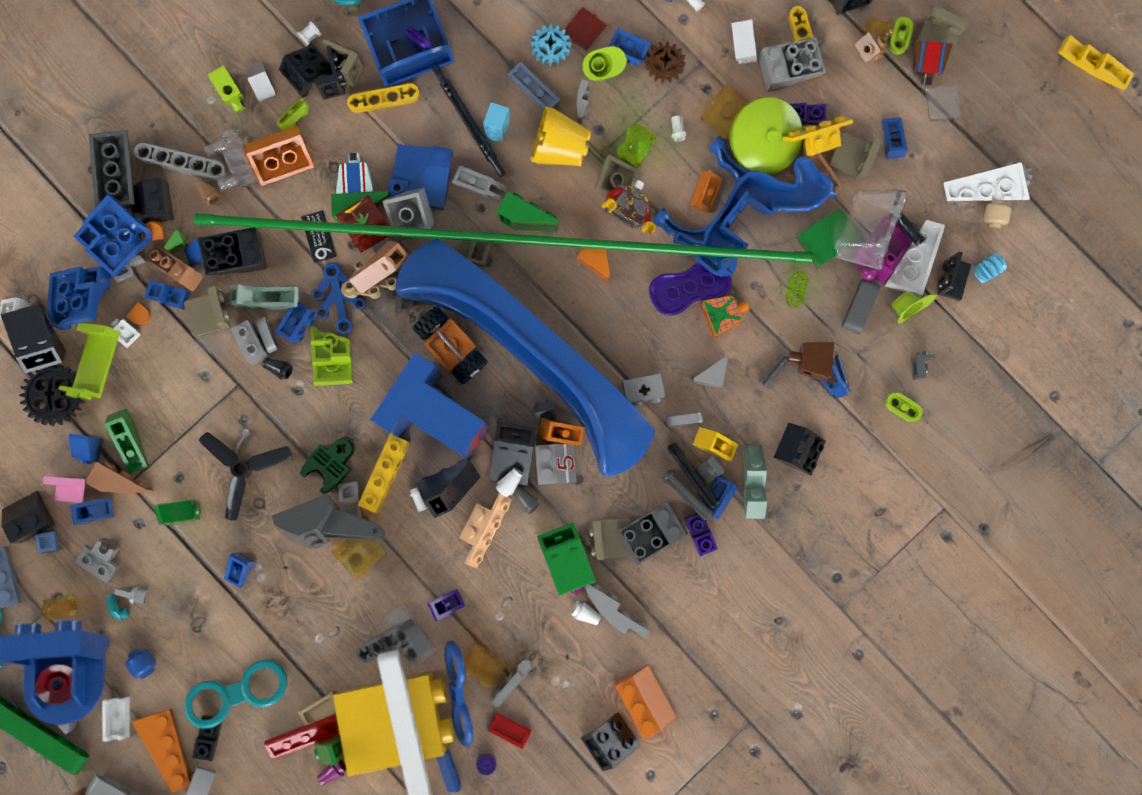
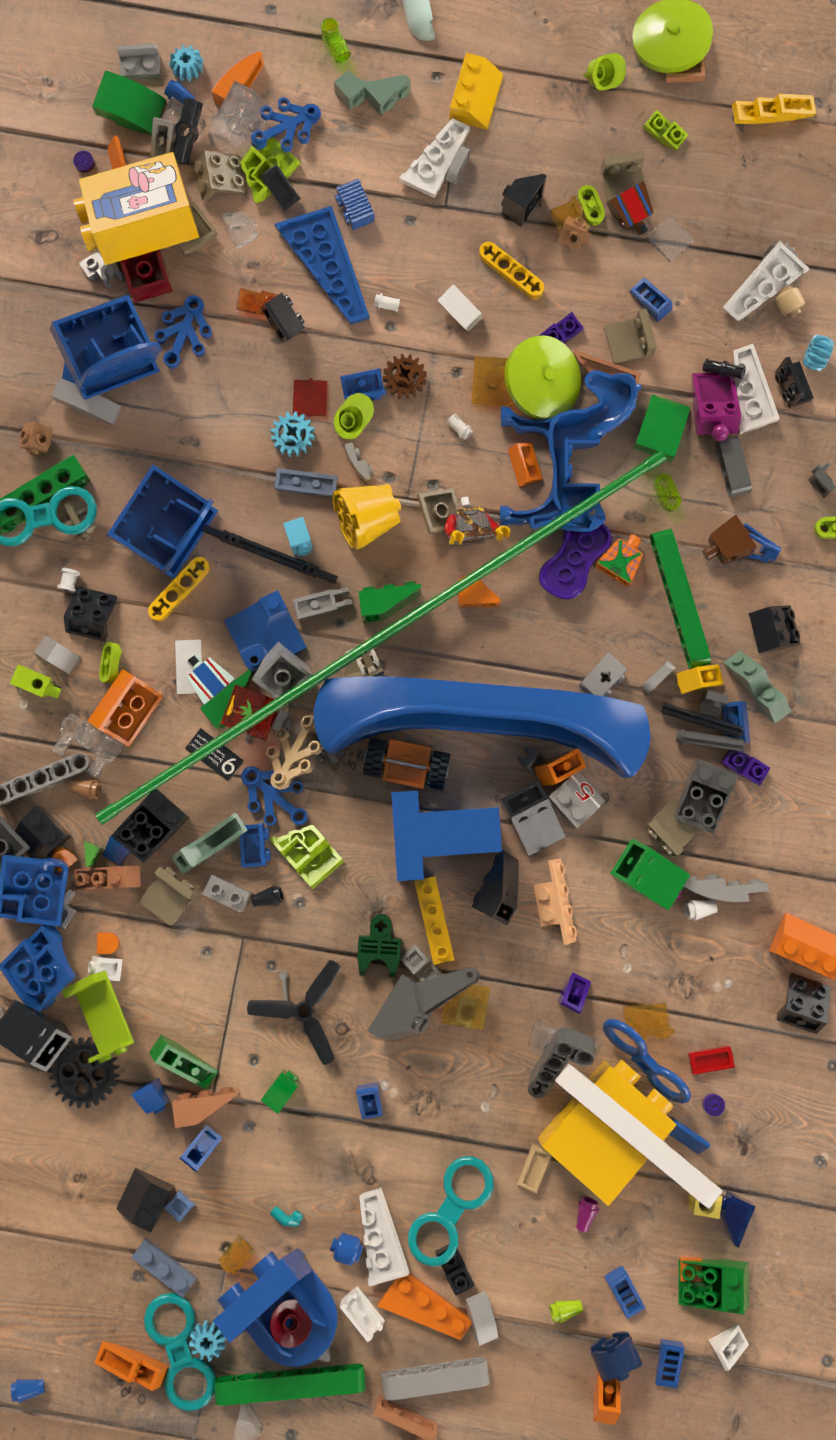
camera: 35 degrees left, 0 degrees up
(67, 488) = (162, 1145): bright pink panel -> none
(99, 560) = (239, 1187): light grey plate -> none
(135, 594) = (296, 1192): light grey piece -> none
(166, 294) = (118, 906): blue slope -> none
(166, 685) = (384, 1253): none -> white wing
(267, 335) = (236, 875): light grey beam -> none
(302, 737) = (538, 1201): red tile -> none
(329, 750) = (572, 1196): green slope -> none
(331, 85) = (127, 610): black bracket -> none
(351, 64) = (124, 574): dark tan bracket -> none
(354, 145) = (184, 651): none -> white sticker
(379, 266) = (294, 737): nougat slope -> none
(417, 500) = (481, 919): white pin -> none
(418, 38) = (180, 513): dark purple axle -> none
(509, 482) = (549, 846): white cone -> none
(512, 682) = (683, 1015): light grey hinge -> none
(526, 500) = (573, 849): dark grey cone -> none
(635, 153) = (441, 475): clear neon green brick -> none
(713, 375) = (653, 619): light grey slope -> none
(745, 374) = (680, 598): none -> green beam
(773, 370) = (701, 578): flat silver axle -> none
(790, 63) = (515, 298): light grey slope -> none
(820, 137) = (590, 344): yellow bracket -> none
(870, 226) = (694, 391): clear windscreen -> none
(911, 303) = (773, 434): lime piece -> none
(999, 21) = (665, 132): none -> lime slope

